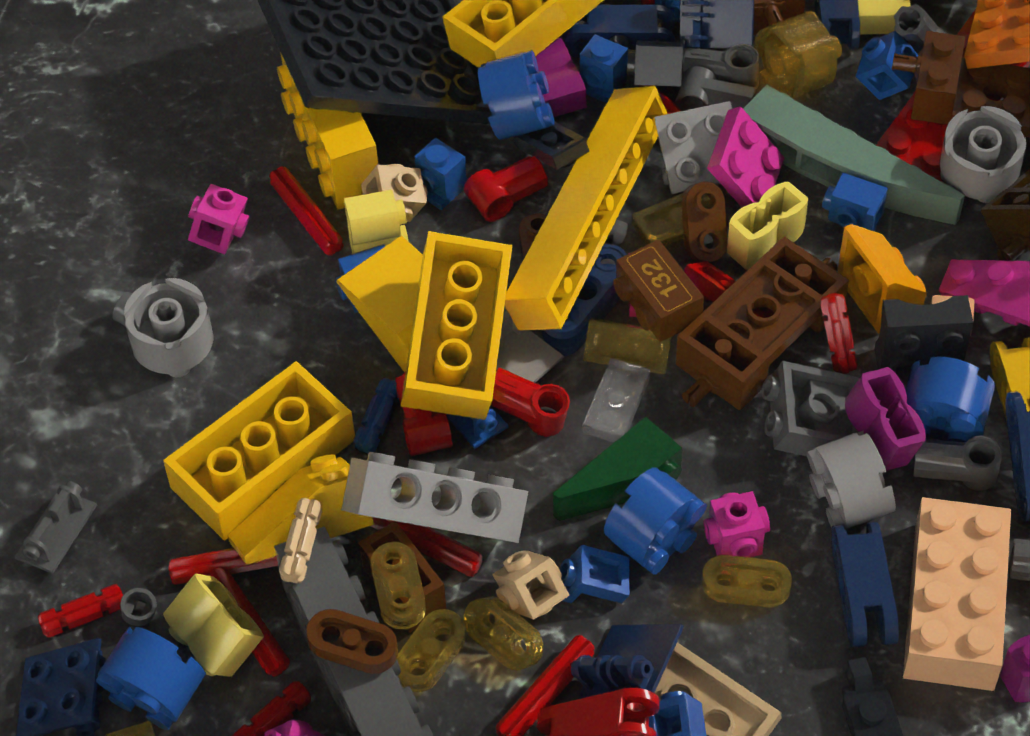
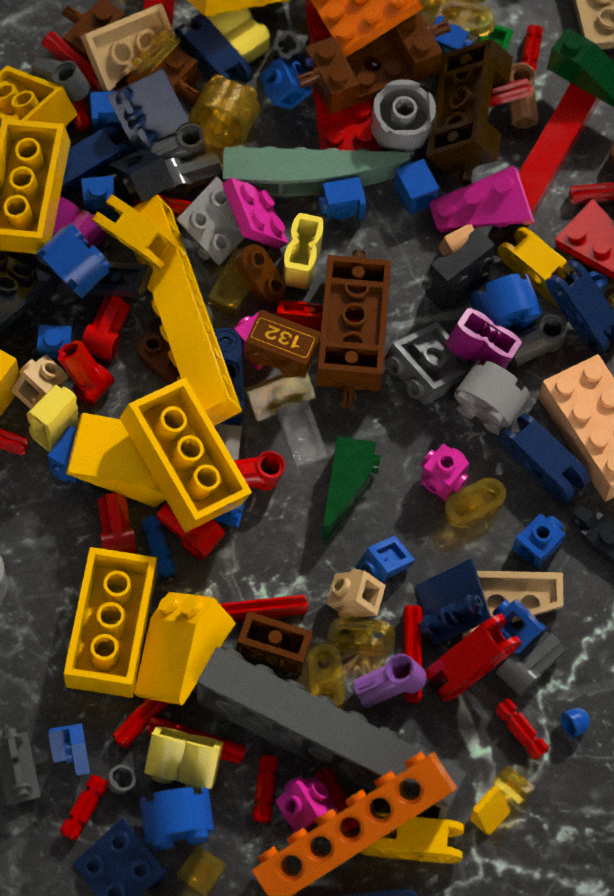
camera: 45 degrees left, 10 degrees up
(118, 543) = (69, 745): none -> blue bracket
(300, 540) = (214, 666): tan axle -> none
(352, 368) = (115, 524): none -> red piece
(355, 640) = (303, 707): reddish brown plate -> none
(370, 495) = (263, 580): light grey brick -> none
(397, 582) = (287, 651): clear yellow plate -> none
(444, 202) = (89, 378): none -> red piece
(493, 693) = (388, 680): none -> medium lavender piece
(600, 104) = (136, 232): none -> yellow piece
(655, 519) = (399, 501): blue brick -> none
(786, 665) = (536, 549): none -> blue brick
(838, 333) = (407, 300): red axle -> none
(876, 273) = (406, 246): light orange slope -> none
(948, 234) = (415, 186): none -> blue brick

